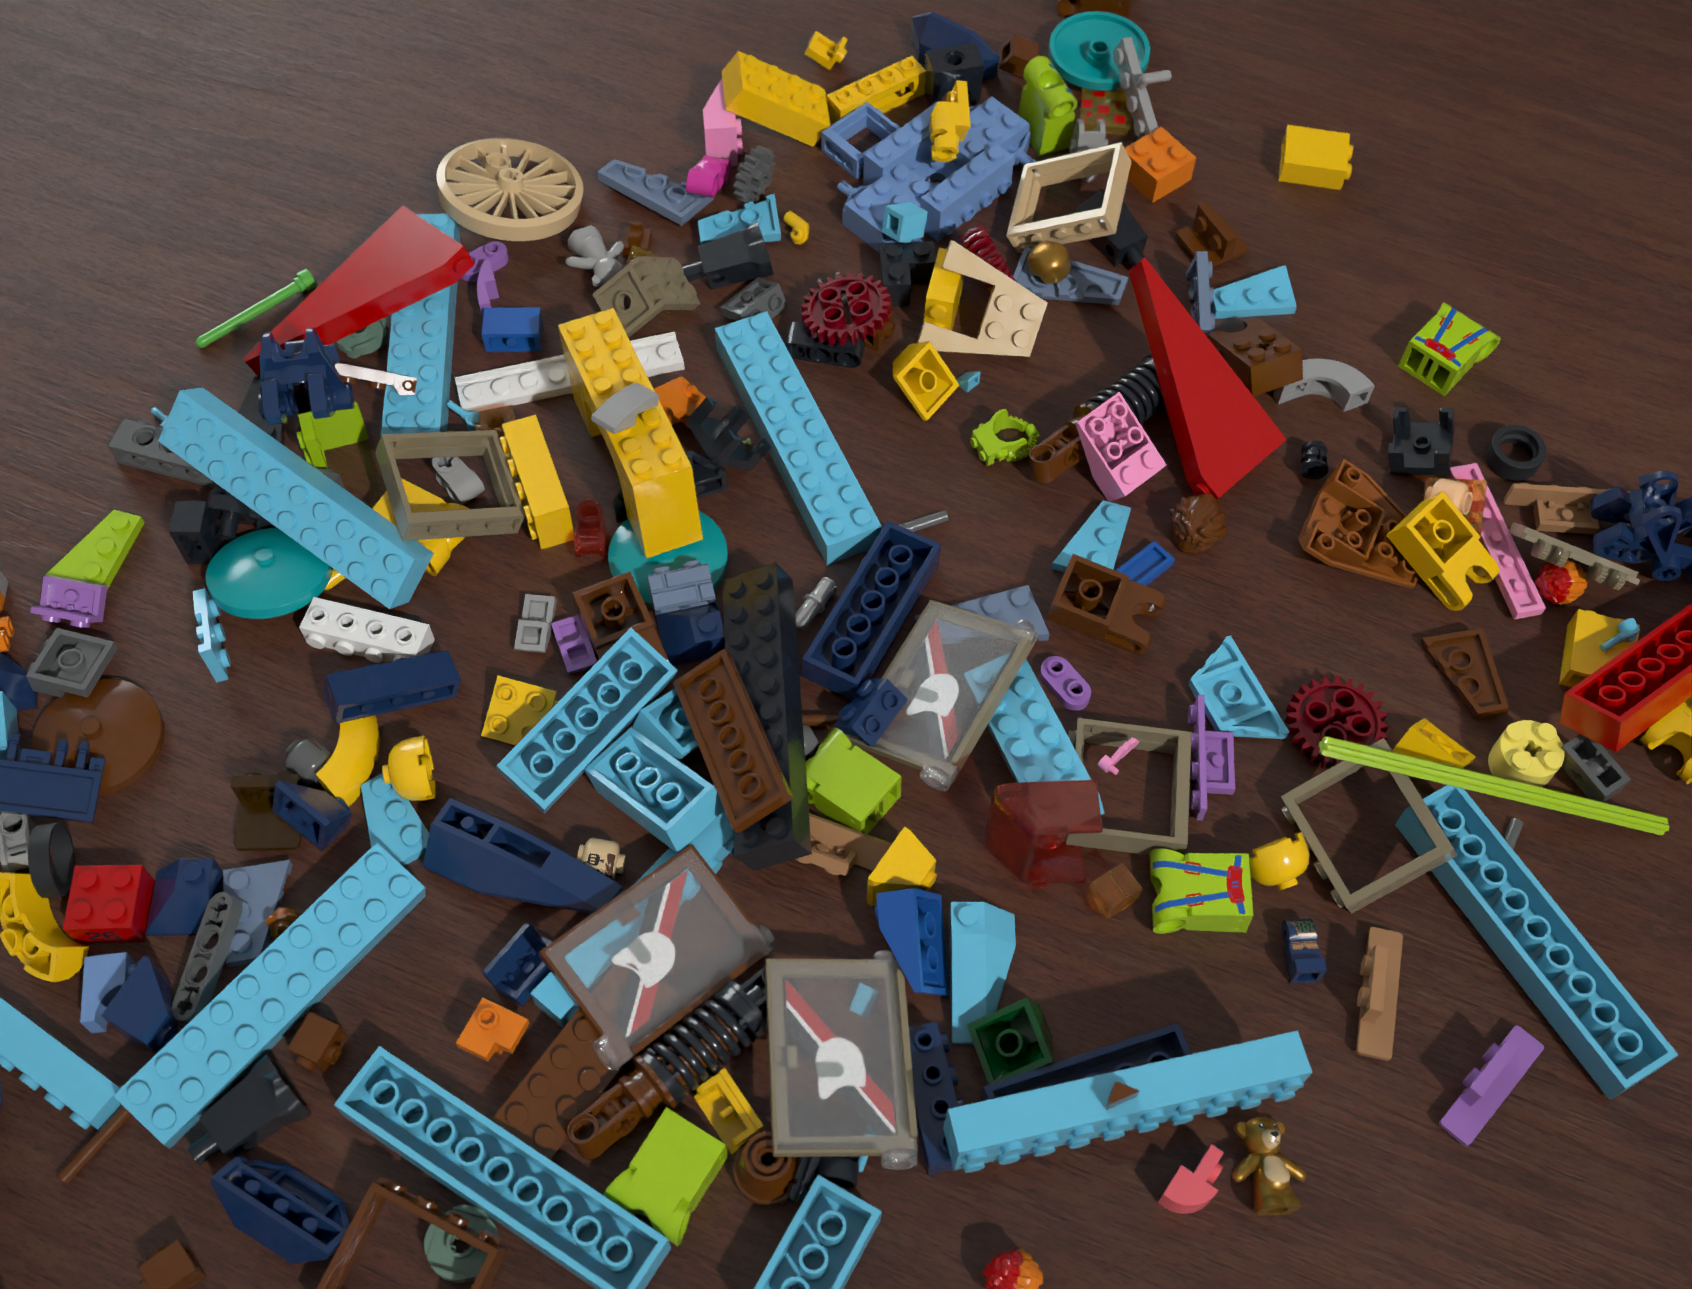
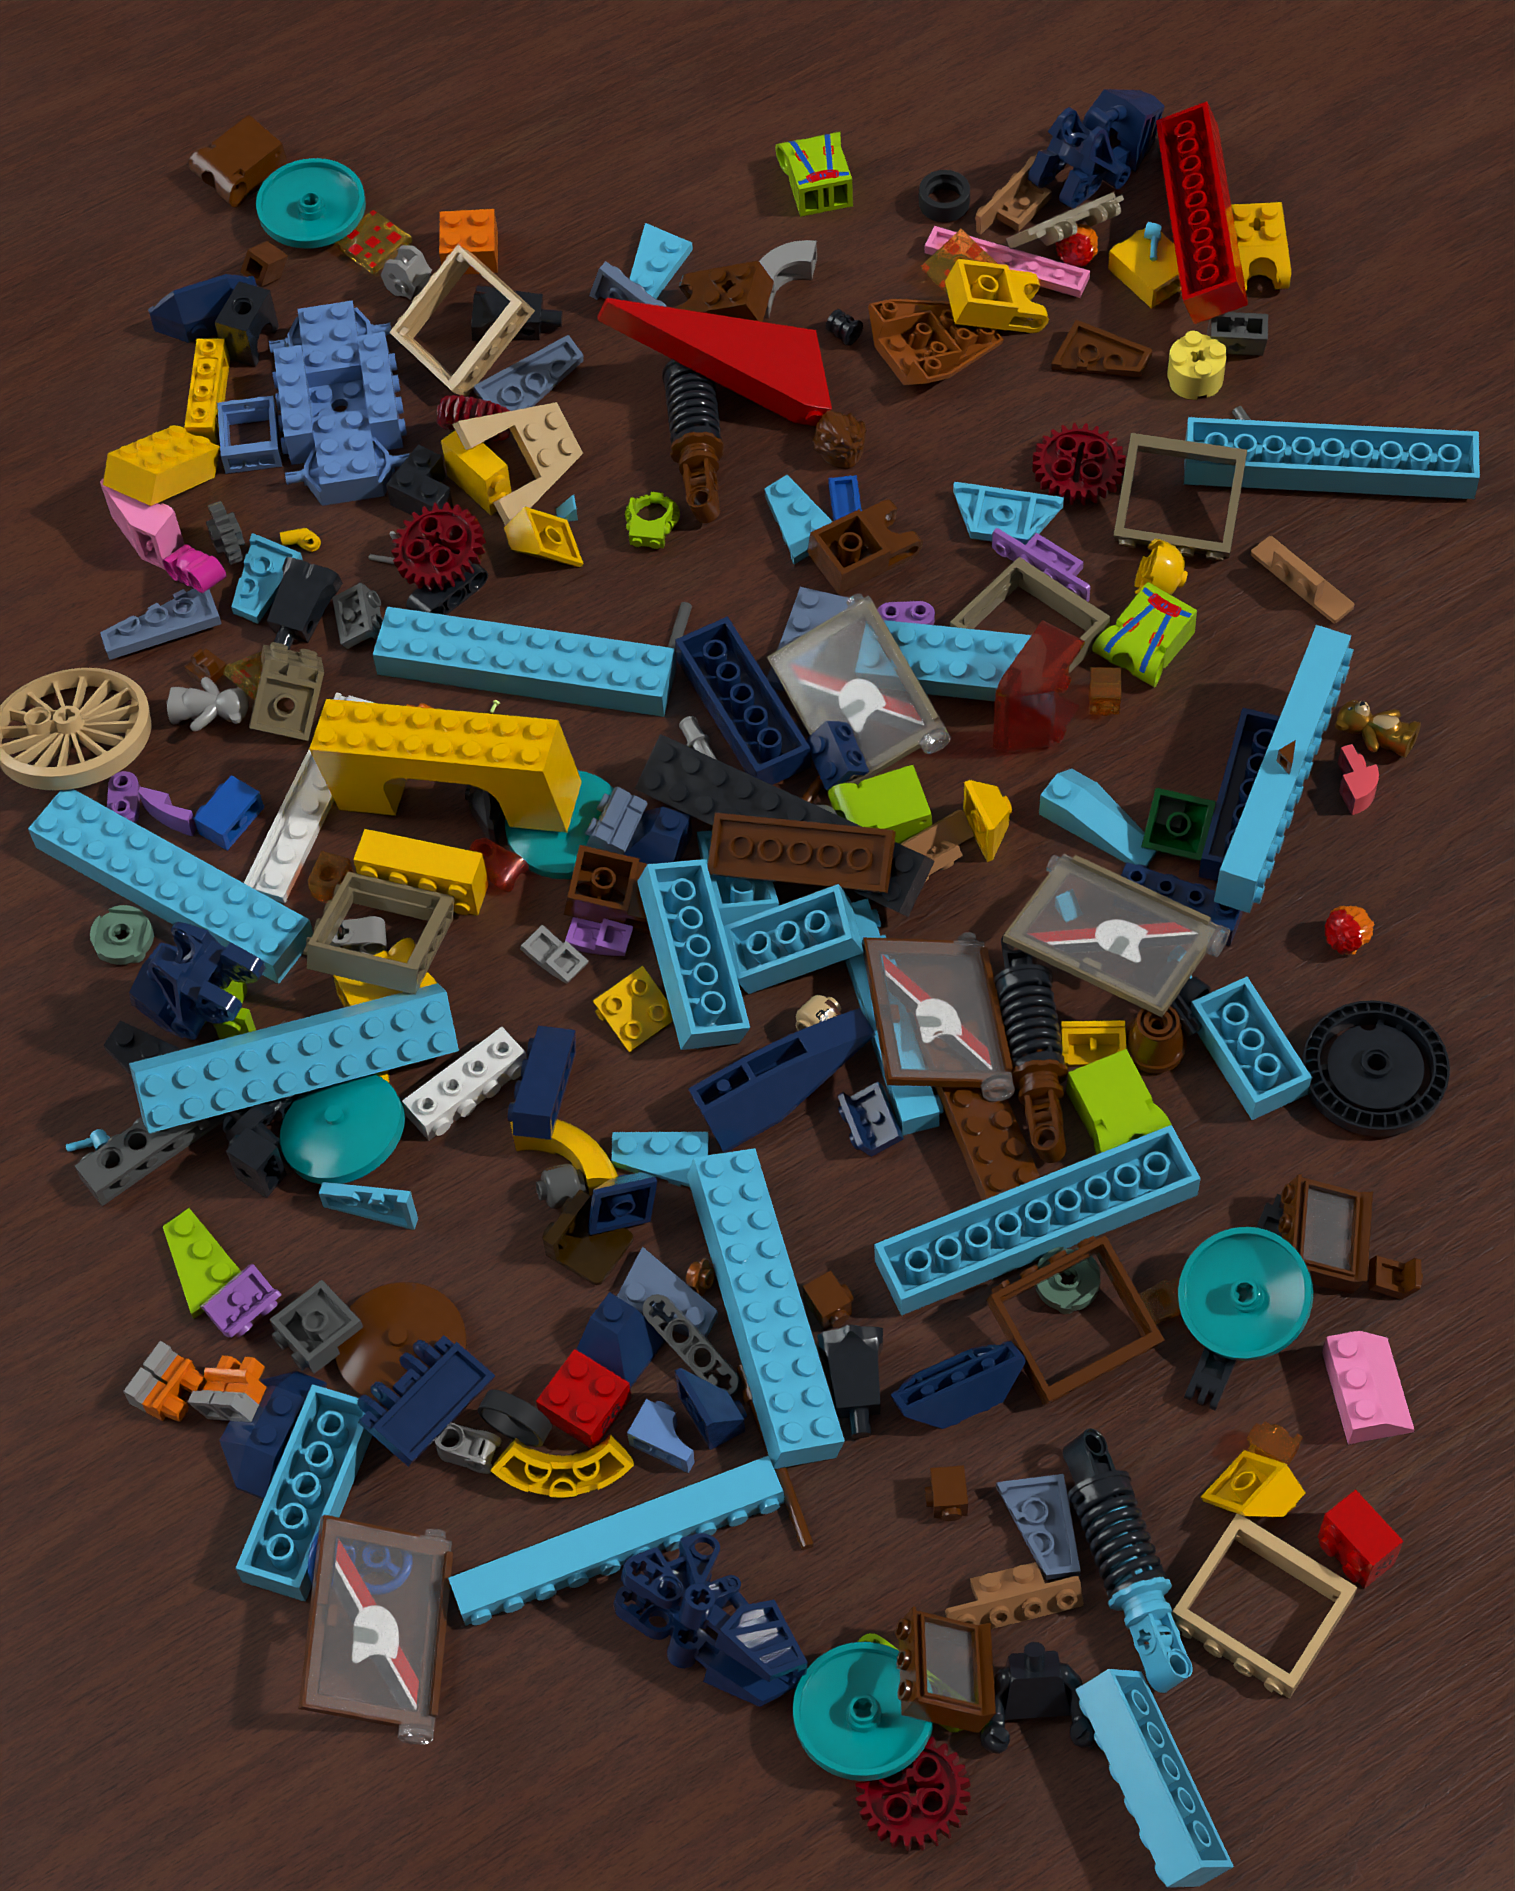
camera: 50 degrees left, 0 degrees up
(301, 283) = (24, 953): bright green piece -> none
(377, 379) = (240, 916): hinge -> none
(384, 275) = (102, 869): red slope -> none
(411, 769) = (636, 1107): yellow cylinder -> none
(470, 417) = (299, 891): medium azure hand -> none
(492, 1030) = (912, 1165): orange brick -> none
(622, 408) = (462, 734): light grey slope -> none
(721, 439) = (512, 704): black panel -> none
(826, 51) = (119, 401): yellow bracket -> none
(904, 221) = (385, 450): medium azure brick -> none
(916, 935) = (1041, 832): blue slope -> none
(950, 123) = (314, 351): yellow plate -> none
(1047, 107) = (349, 274): lime piece -> none
(1049, 262) = (507, 377): pearl gold hair -> none
(1107, 763) = (1005, 624): bright pink piece -> none
(1117, 448) = (740, 444): bright pink slope -> none
(1135, 86) = (386, 202): light grey plate -> none
(1211, 234) = (575, 255): reddish brown bracket -> none
(1302, 951) = (1237, 605): dark blue leg -> none
(1315, 157) = (556, 131): yellow brick -> none
(1422, 446) = (891, 248): black panel -> none
(1430, 743) = (1148, 418): yellow slope -> none
(1456, 492) = (950, 255): light nougat head -> none
(1490, 1085) = (1415, 559): medium lavender bracket -> none
(1492, 785) = (1212, 397): lime axle -> none

